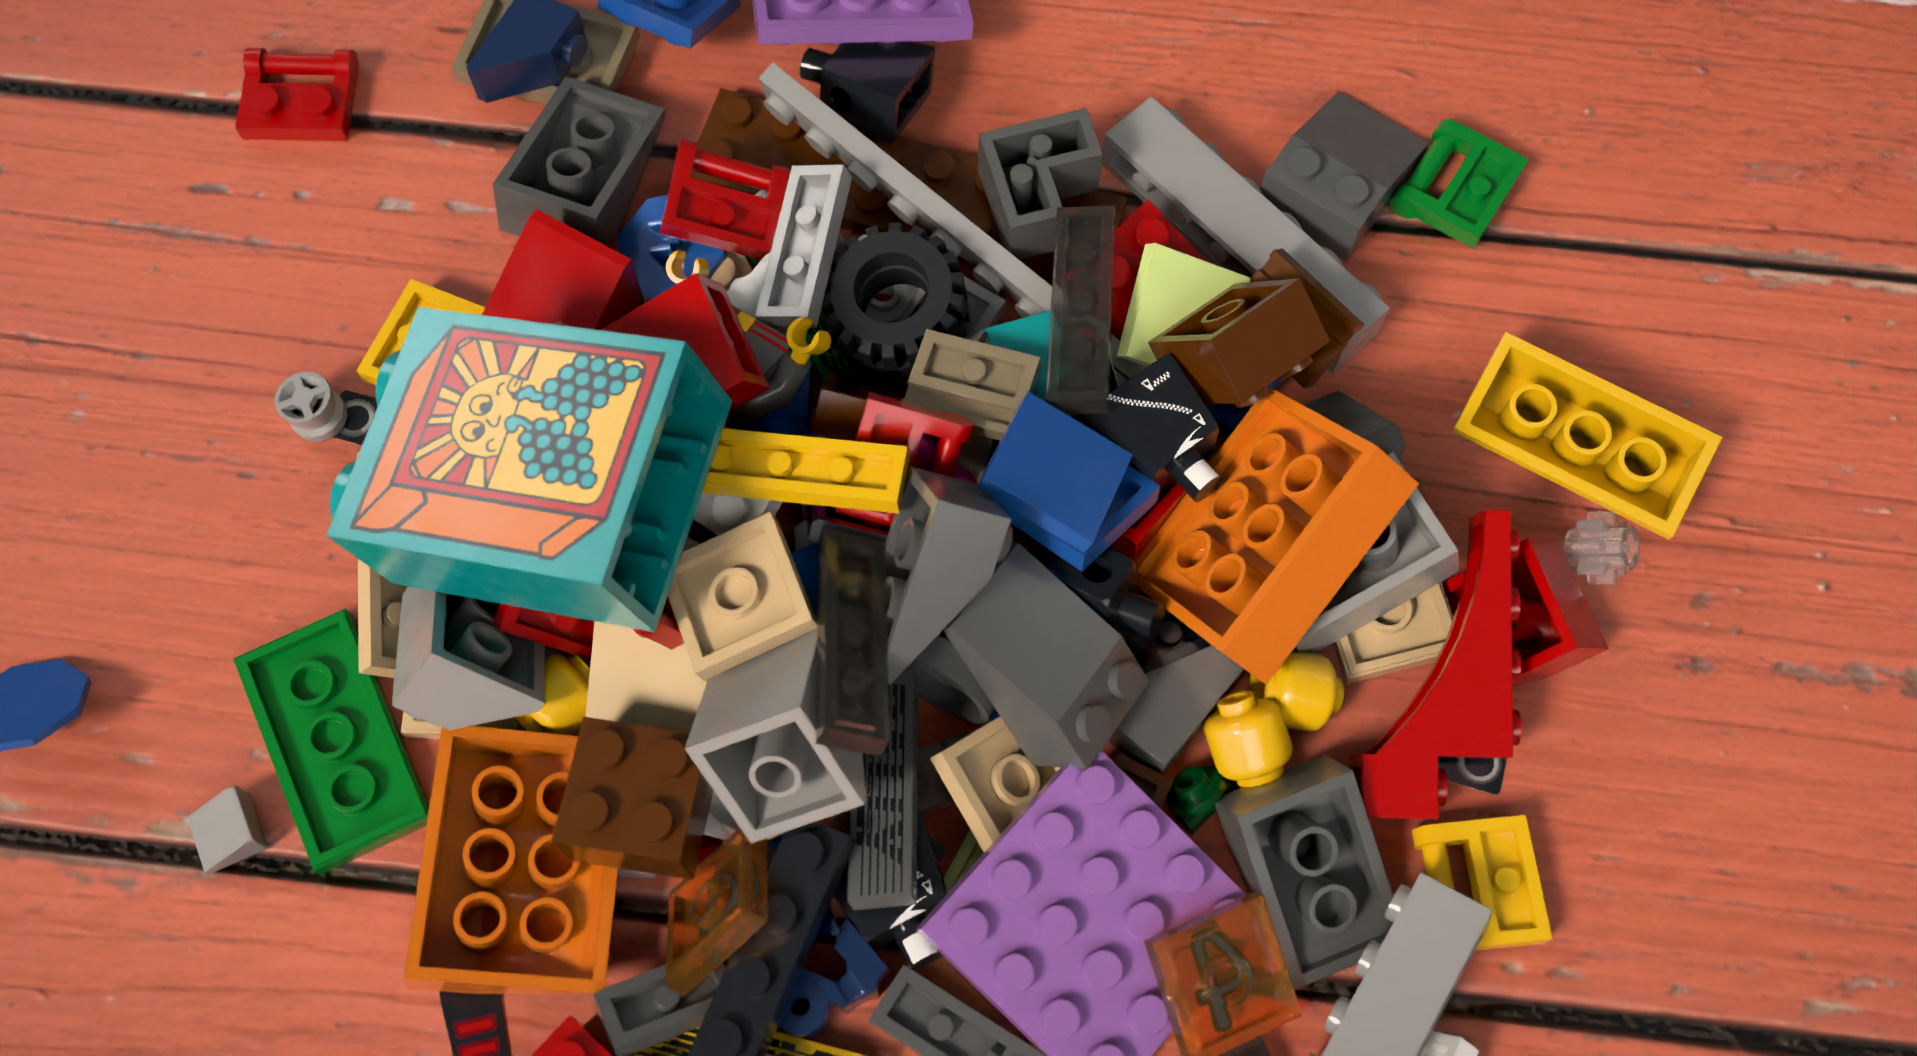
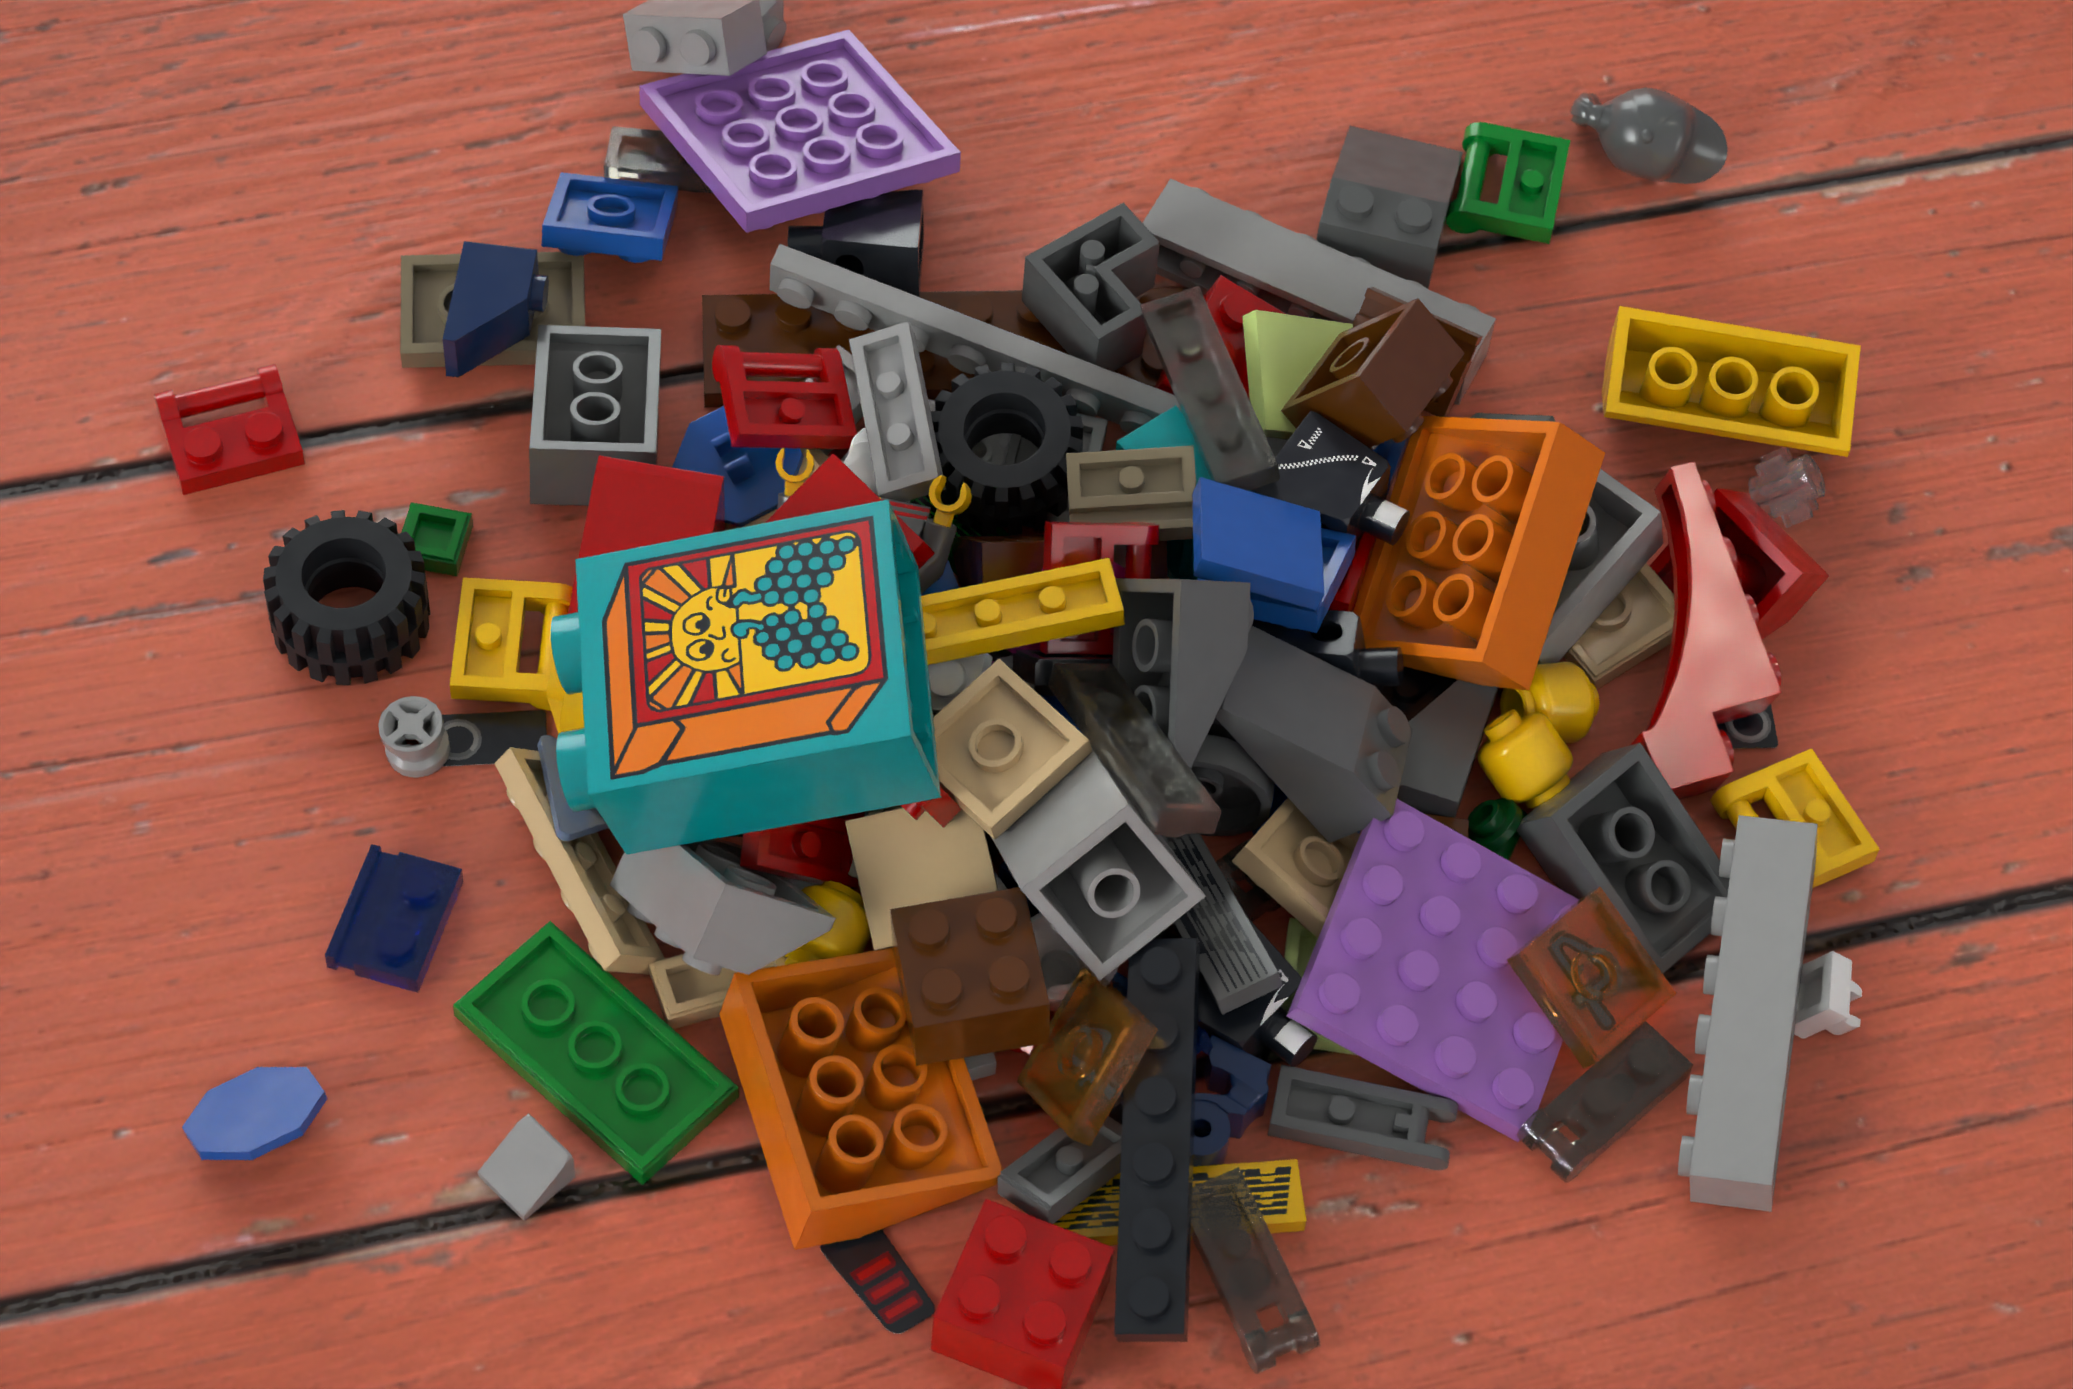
camera: 25 degrees left, 10 degrees down
(227, 562) = (394, 918): none -> clear blue plate
(288, 236) = (339, 556): none -> black tyre
(414, 236) = (439, 536): none -> green tile
(1608, 176) = (1654, 135): none -> dark grey hair

